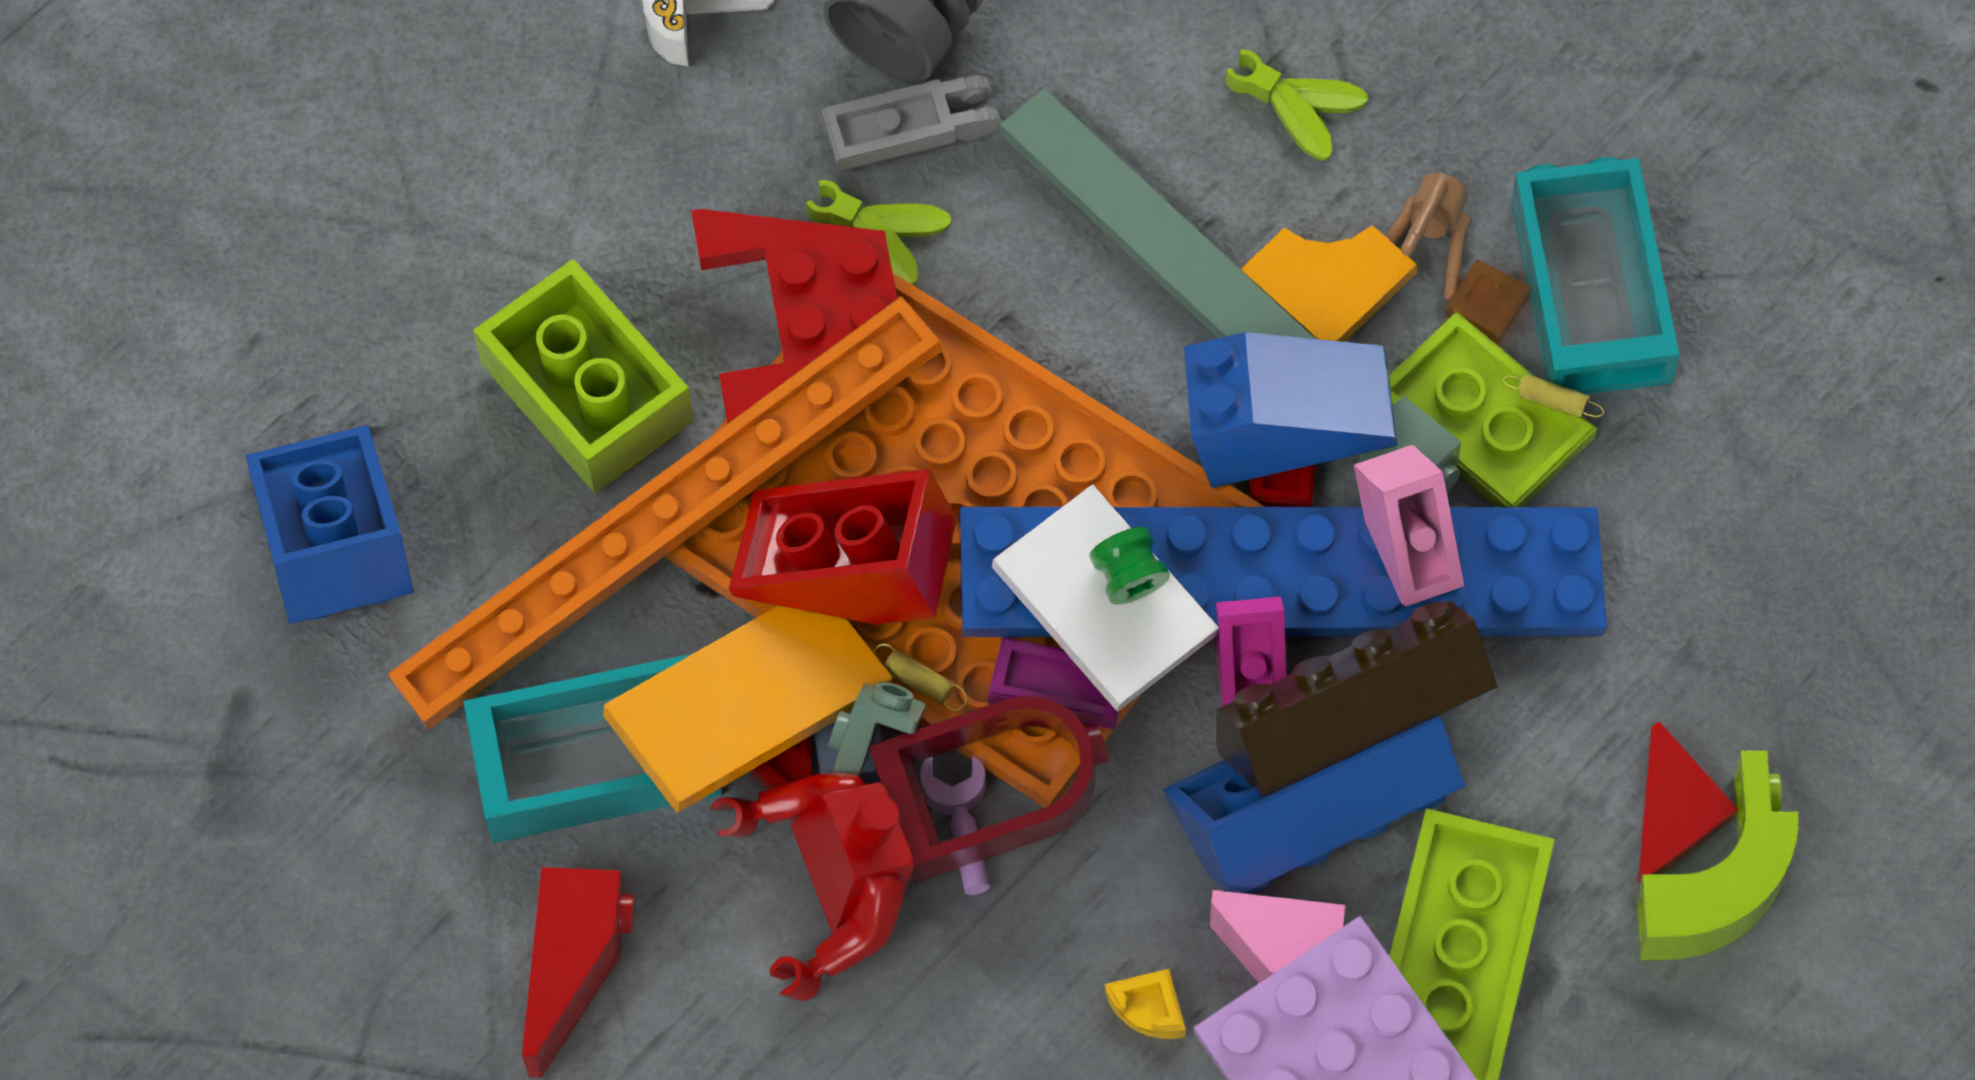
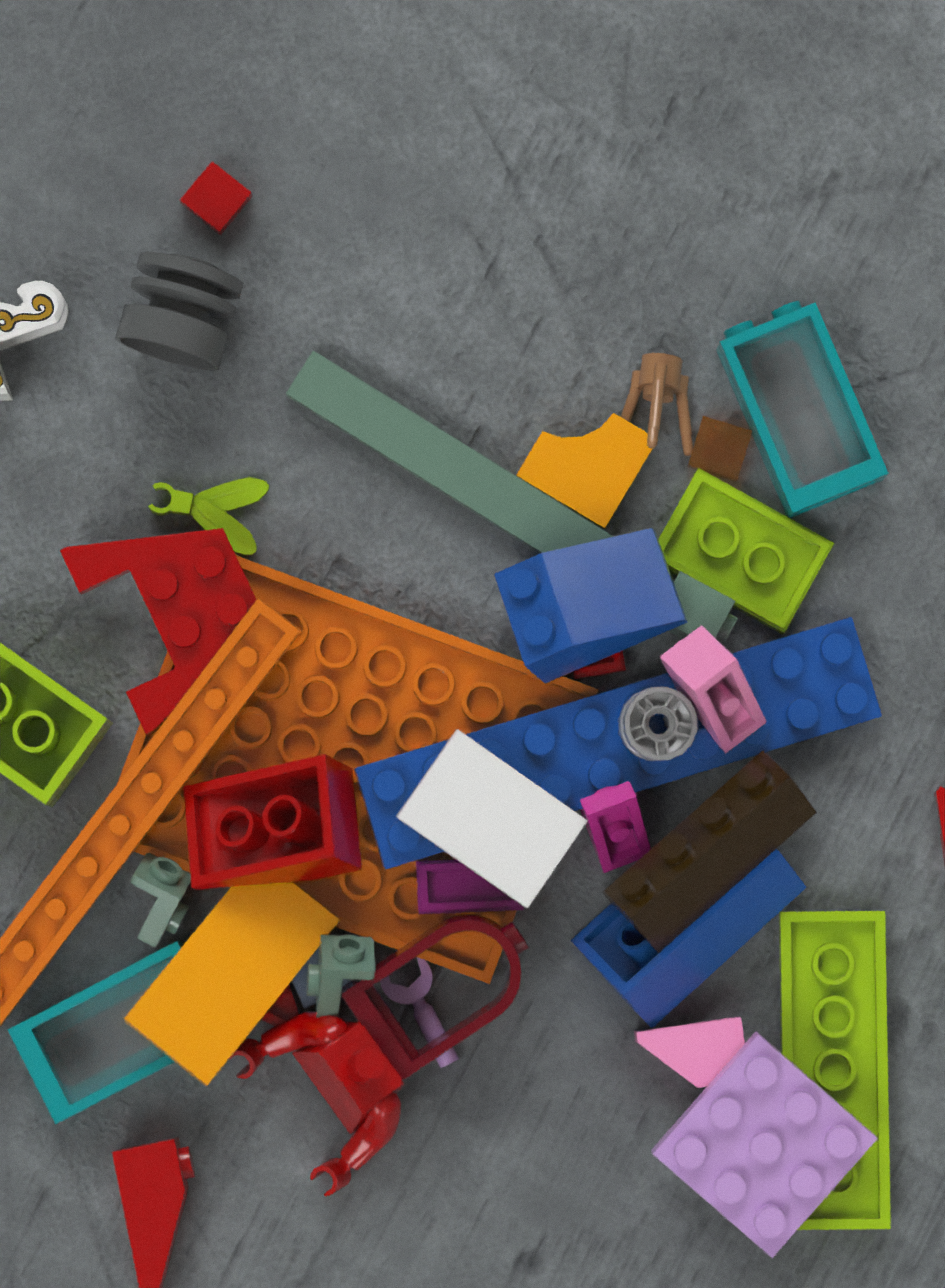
camera: 20 degrees left, 20 degrees up
(694, 617) = (168, 883): none -> sand green bracket
(908, 121) = (207, 410): light grey hinge -> none
(920, 677) = (359, 910): light yellow piece -> none
(1129, 565) = (508, 800): green wheel -> none
(1148, 1004) = (606, 1122): yellow tile -> none
(1298, 101) = (518, 305): lime piece -> none
(1332, 519) = (679, 719): none -> light grey wheel
(1553, 395) = (794, 528): light yellow piece -> none

